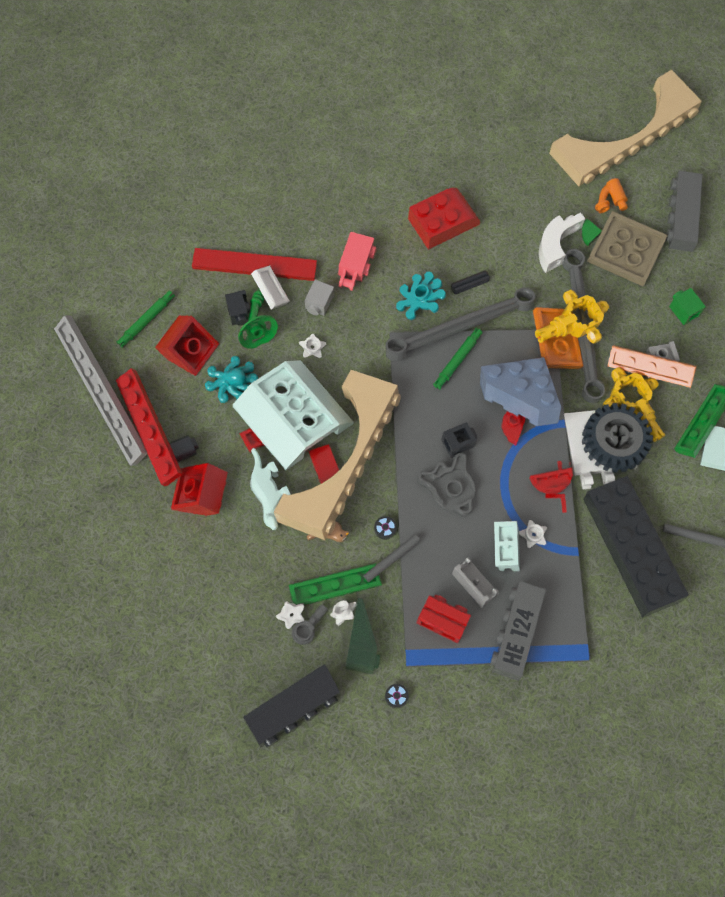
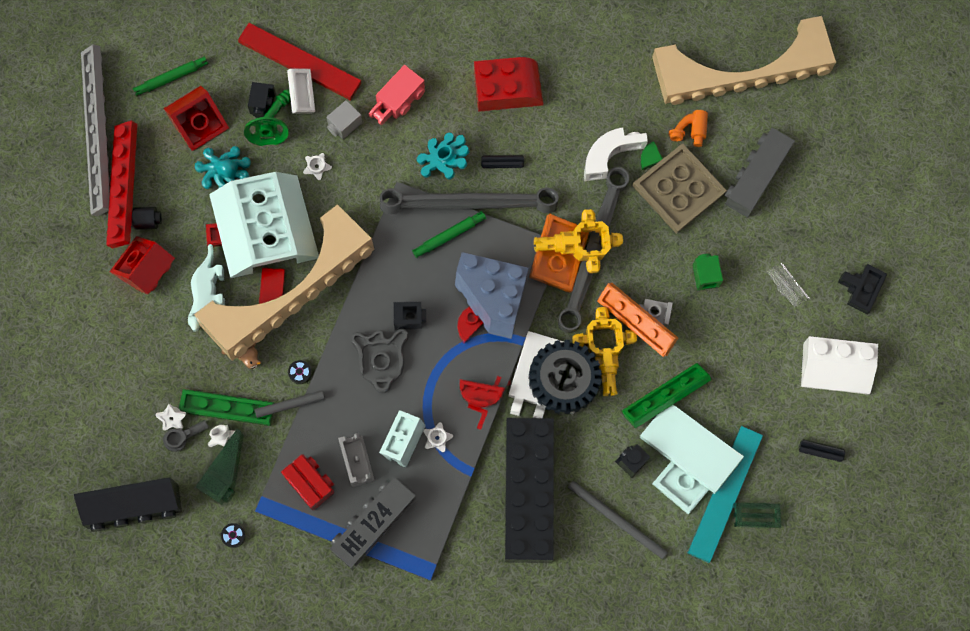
camera: 25 degrees right, 5 degrees up
(706, 485) = (632, 459): none -> black brick

